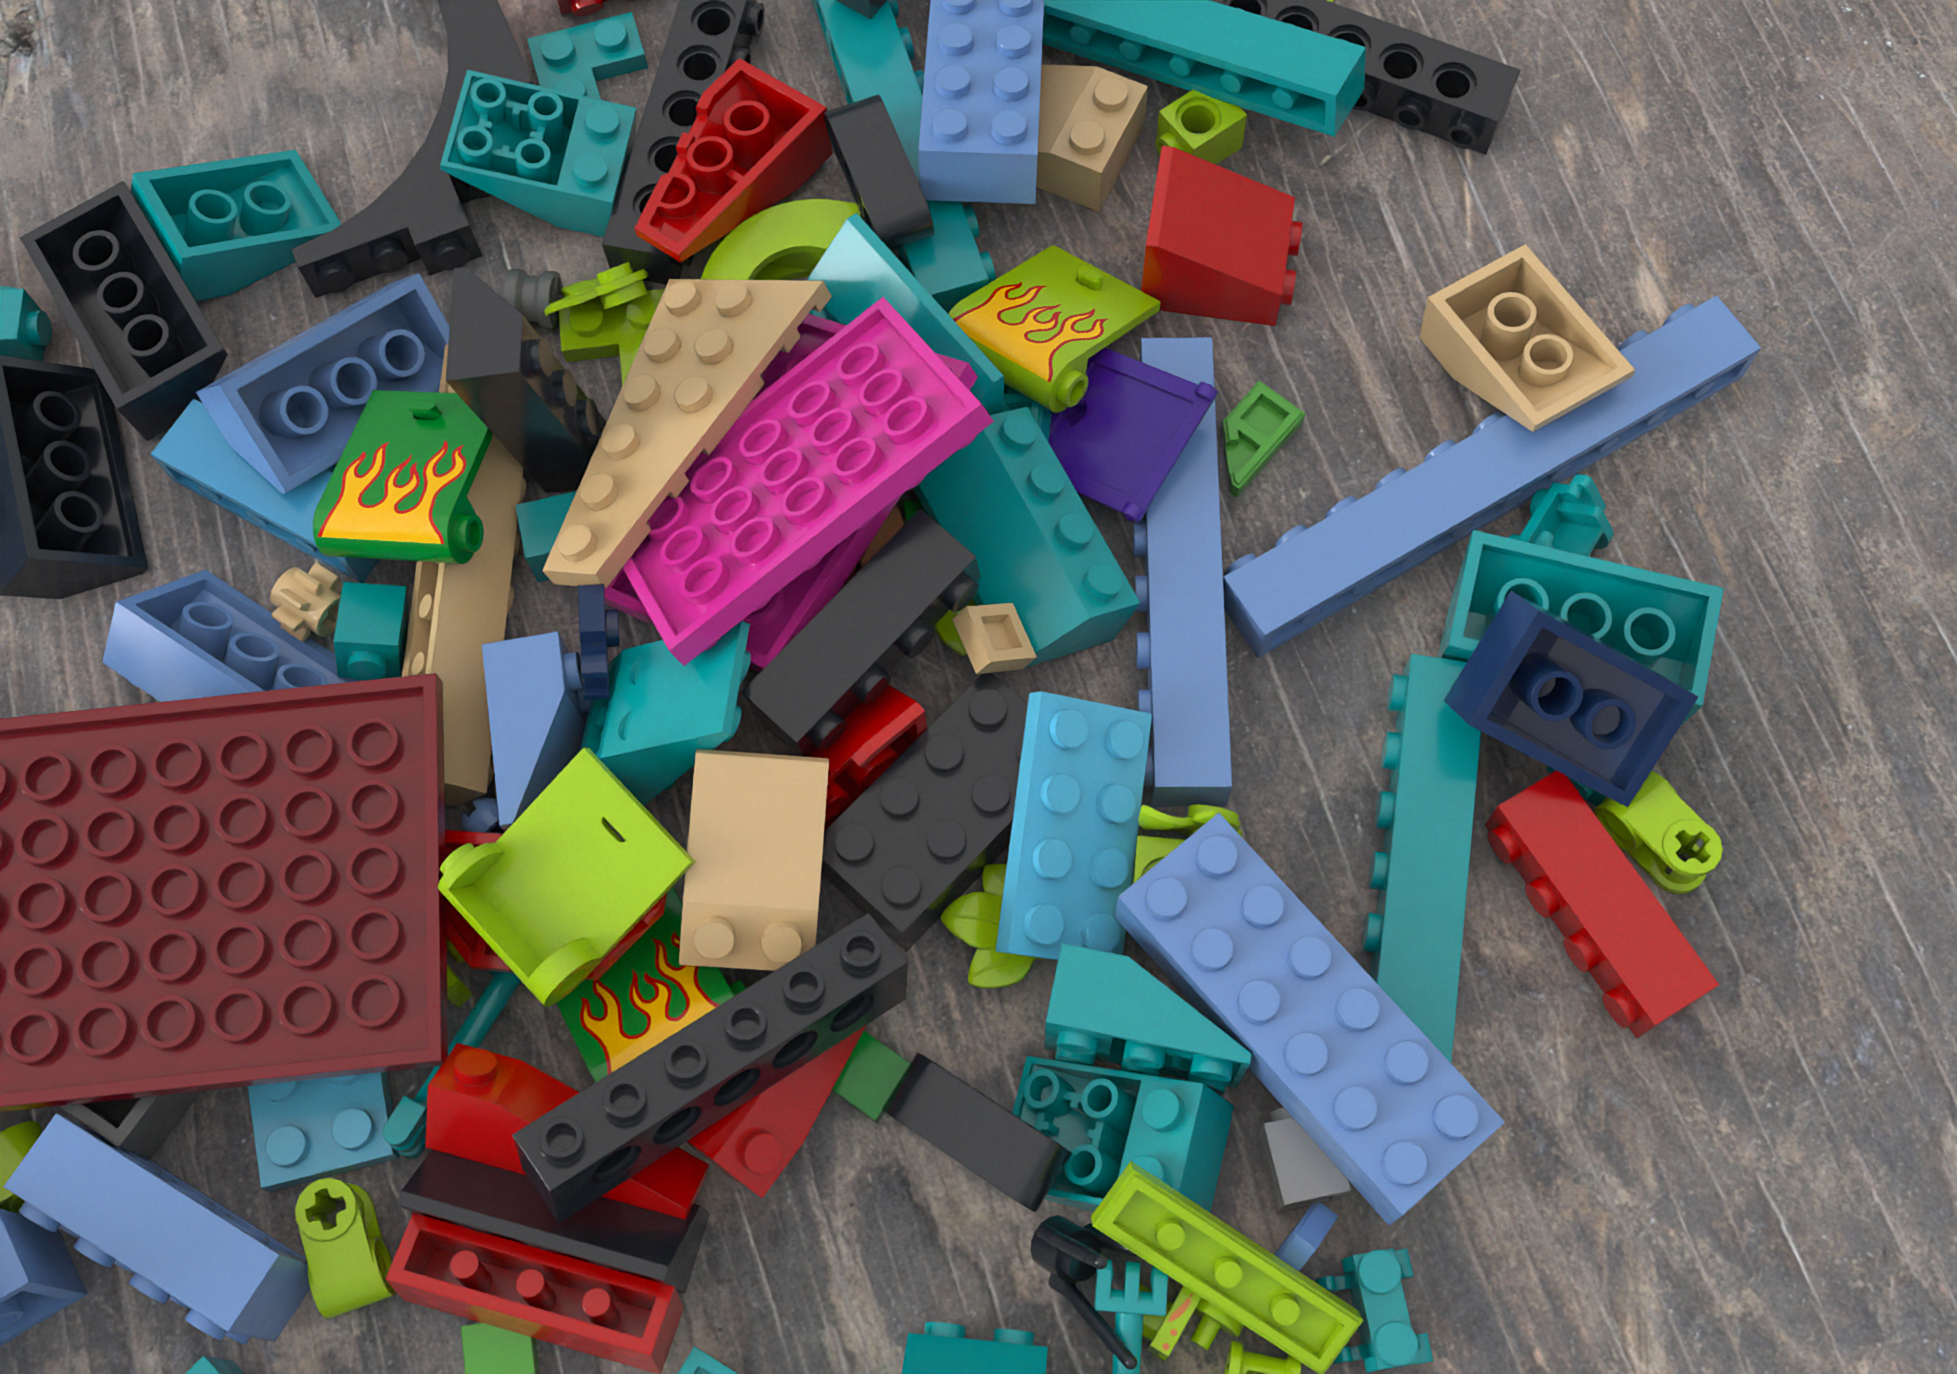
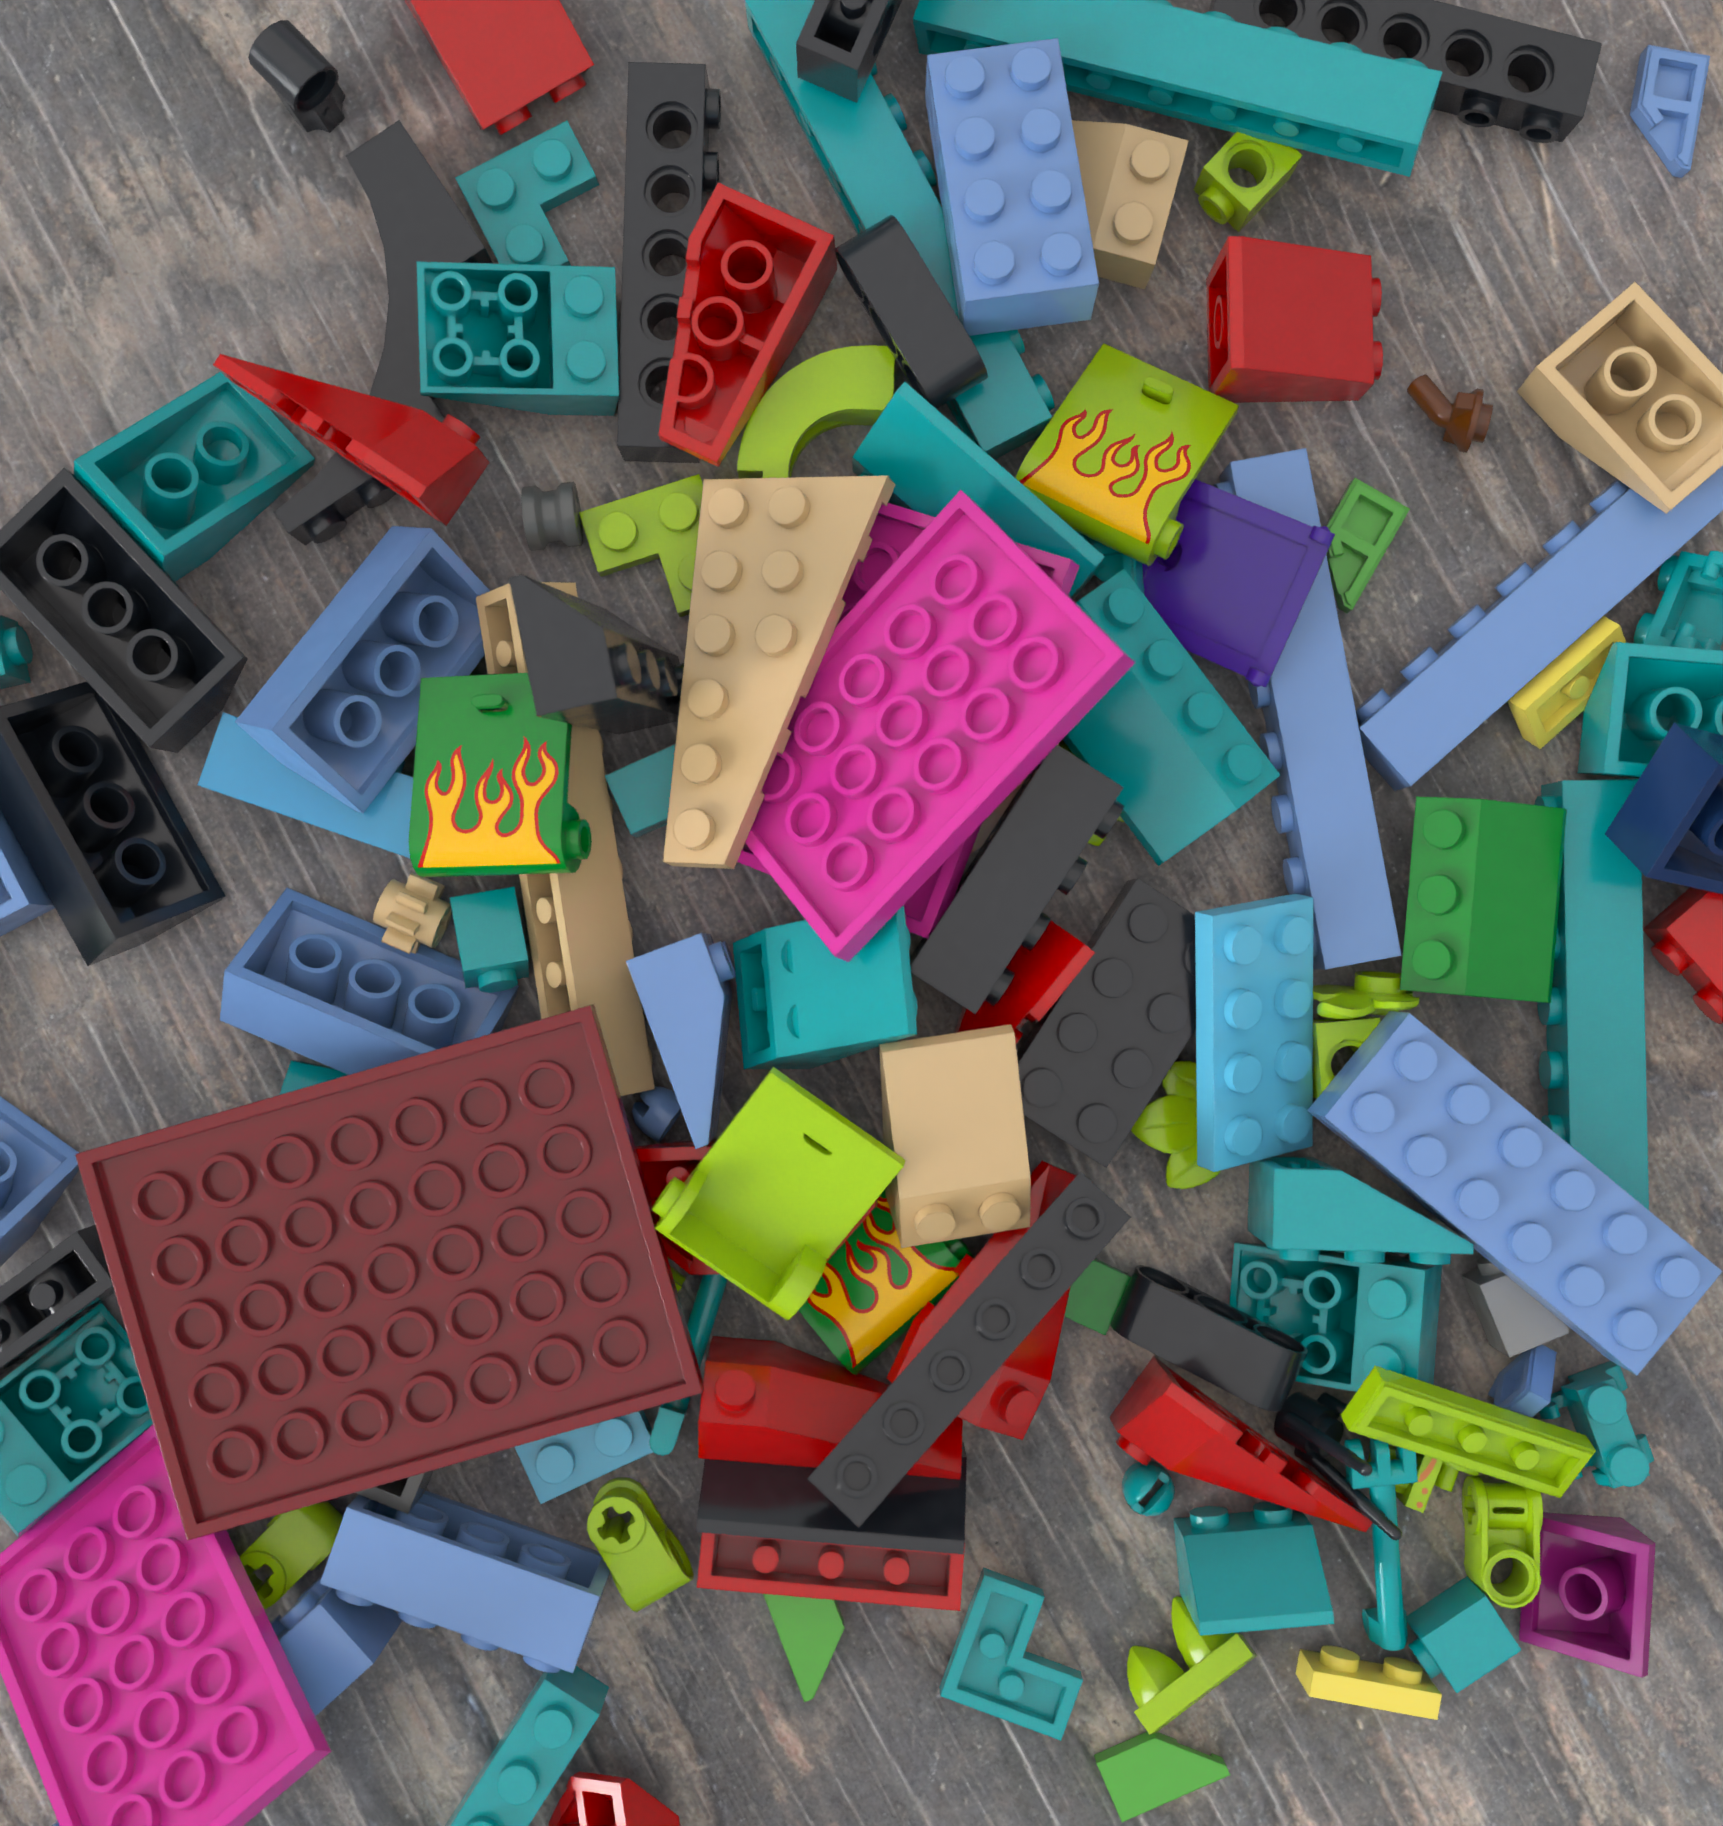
camera: 15 degrees left, 20 degrees up
(399, 198) = (392, 442): none -> red wedge
(597, 632) = (735, 916): dark blue plate -> none
(612, 287) = (645, 495): lime plate -> none
(898, 1307) = (1138, 1482): none -> teal hinge
(944, 1235) = (1201, 1439): none -> red wedge
(994, 638) = (1142, 848): tan plate -> none
(1319, 750) = (1483, 898): none -> green slope
(1364, 344) = (1463, 420): none -> reddish brown plate
(1422, 584) = (1564, 685): none -> light yellow plate
(1584, 136) = (1669, 103): none -> medium blue tile

